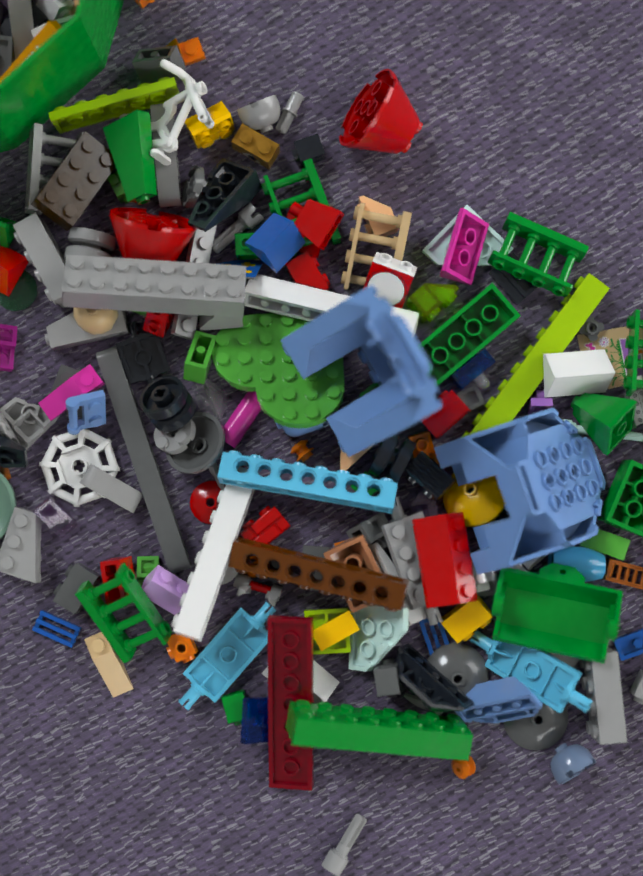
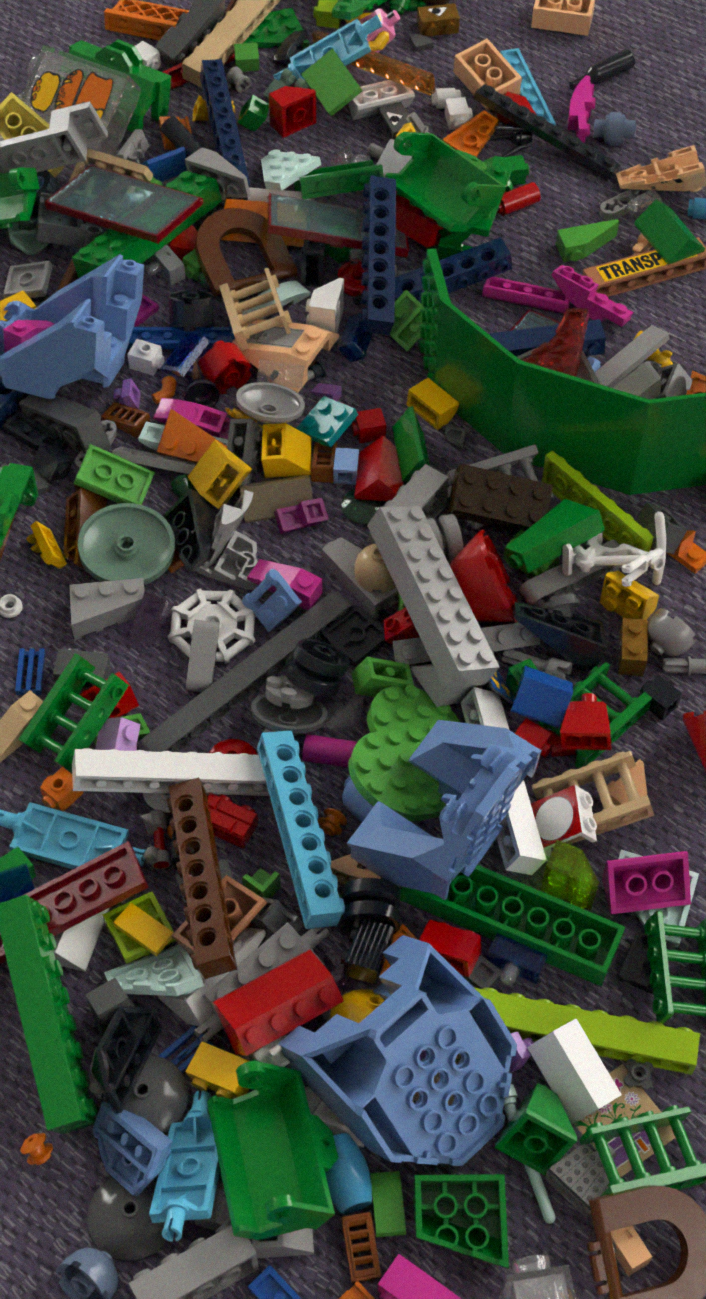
camera: 60 degrees right, 30 degrees down
(330, 526) = (263, 883): none -> bright green panel

